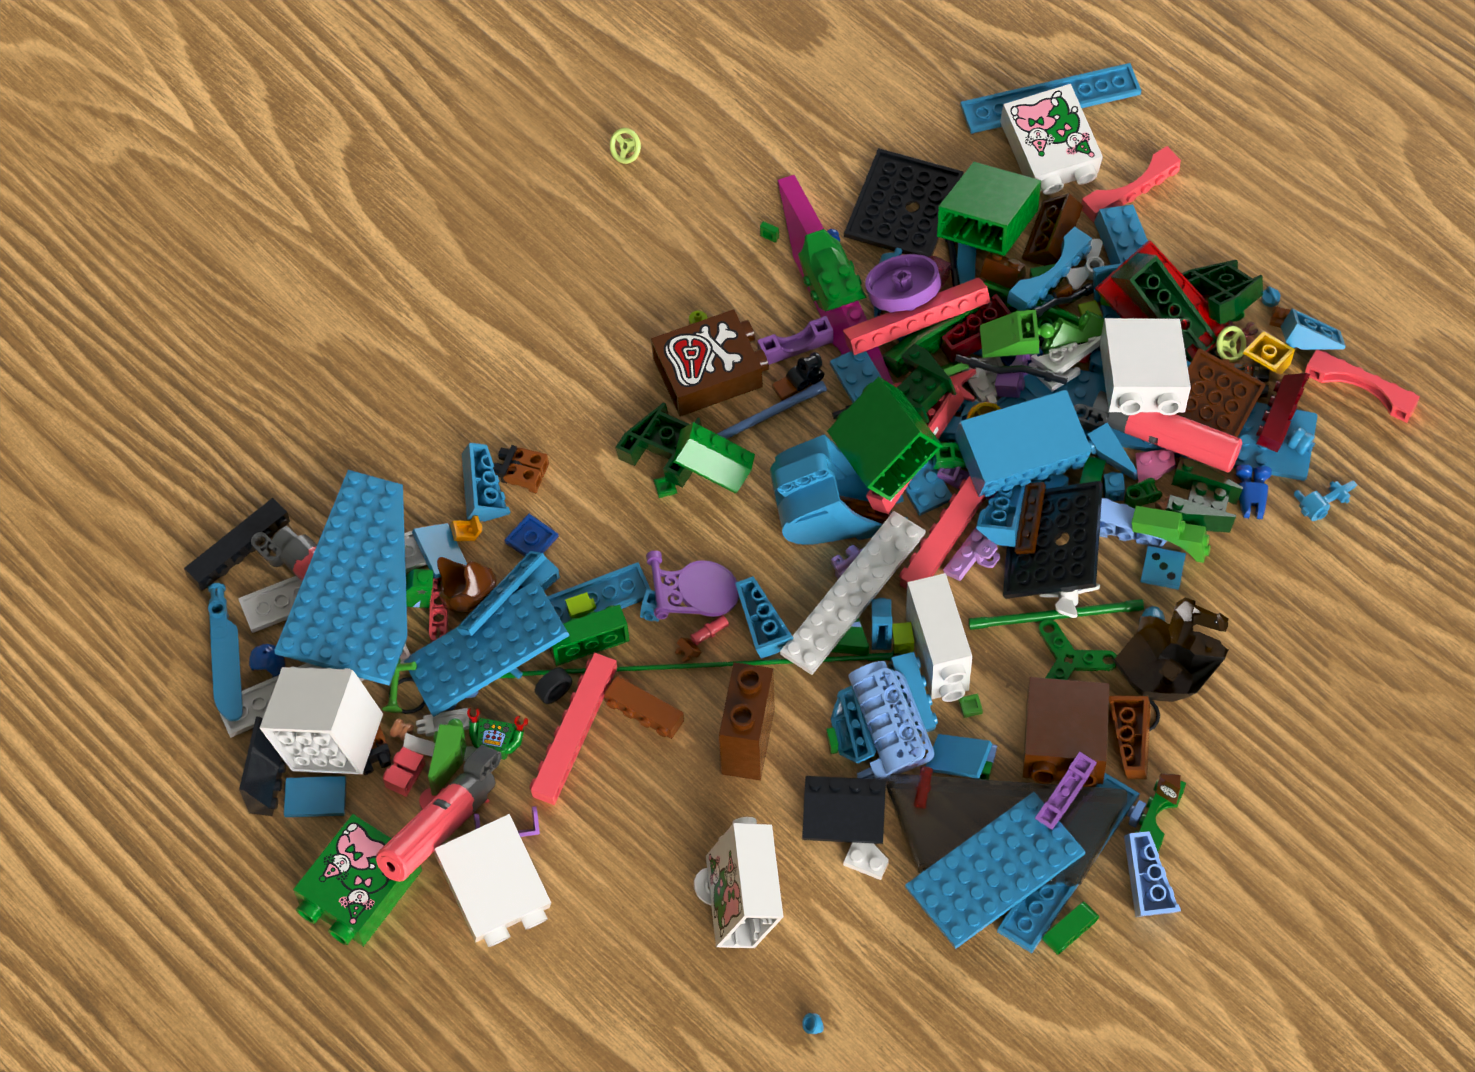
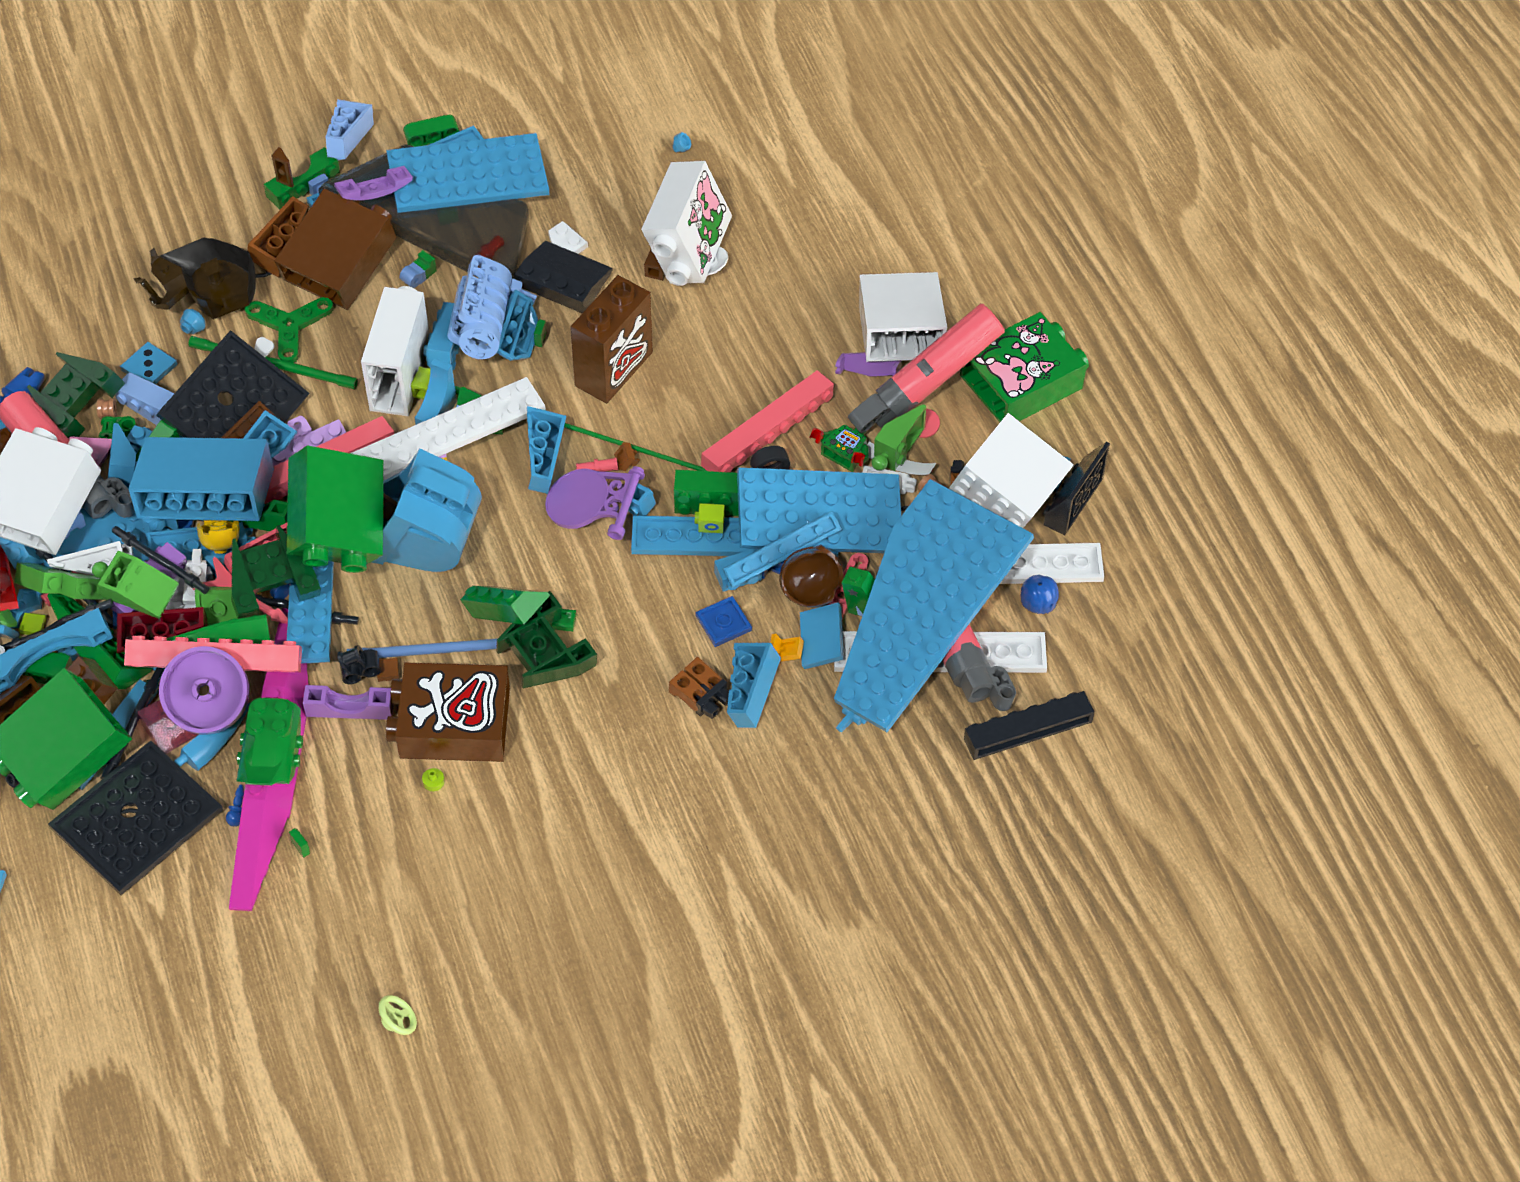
camera: 160 degrees left, 5 degrees down
(224, 656) = (1079, 617): dark azure piece -> none
(404, 772) = (944, 453): coral piece -> none
(644, 707) = (691, 418): dark orange brick -> none
(959, 756) = (436, 273): dark azure tile -> none
(1172, 528) = (125, 364): bright green arch -> none

